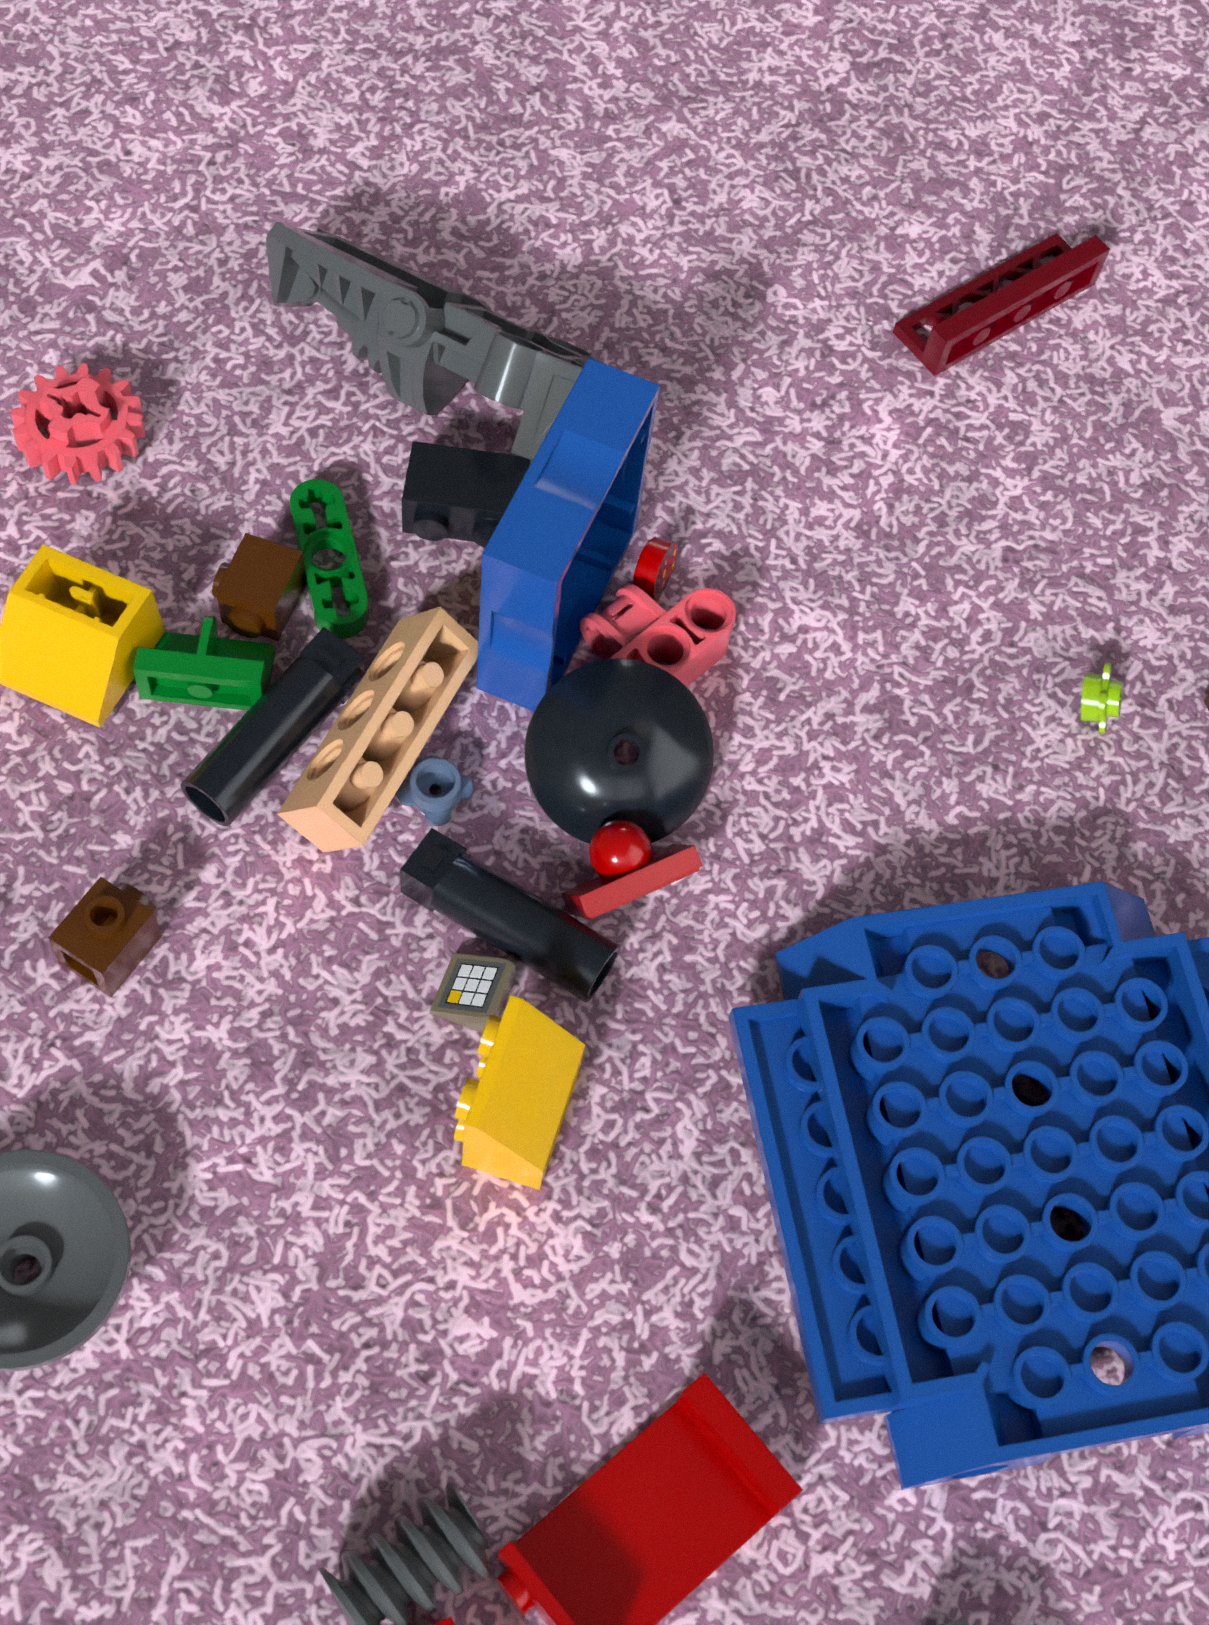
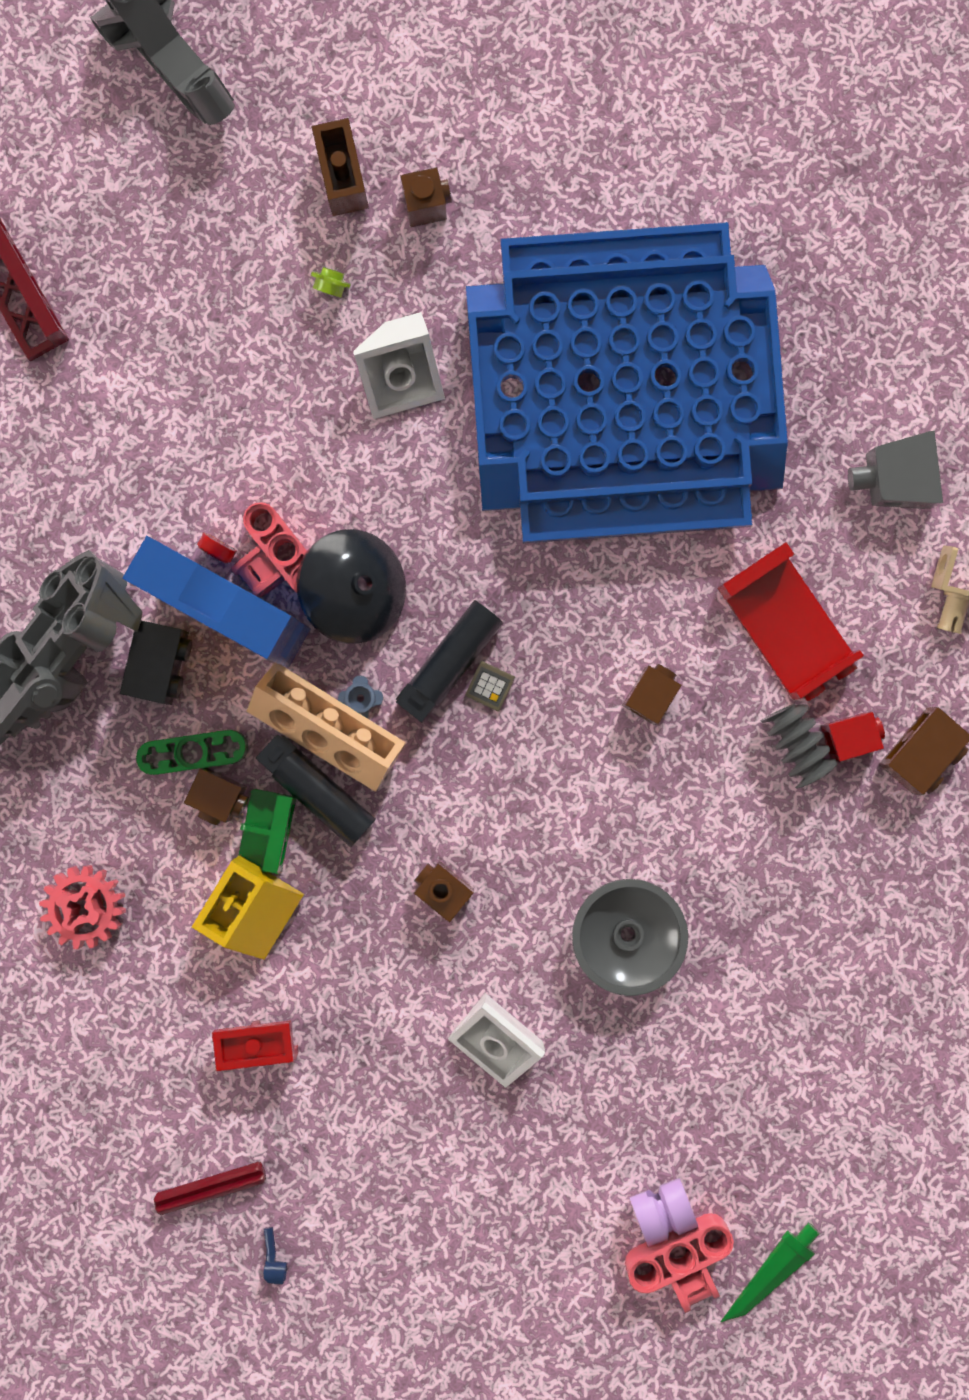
camera: 75 degrees left, 25 degrees up
(483, 1269) = (652, 693): none -> reddish brown brick
(522, 1094) = (563, 665): yellow slope -> none
(627, 869) = (427, 589): red tile -> none
(989, 803) = (399, 367): none -> white slope

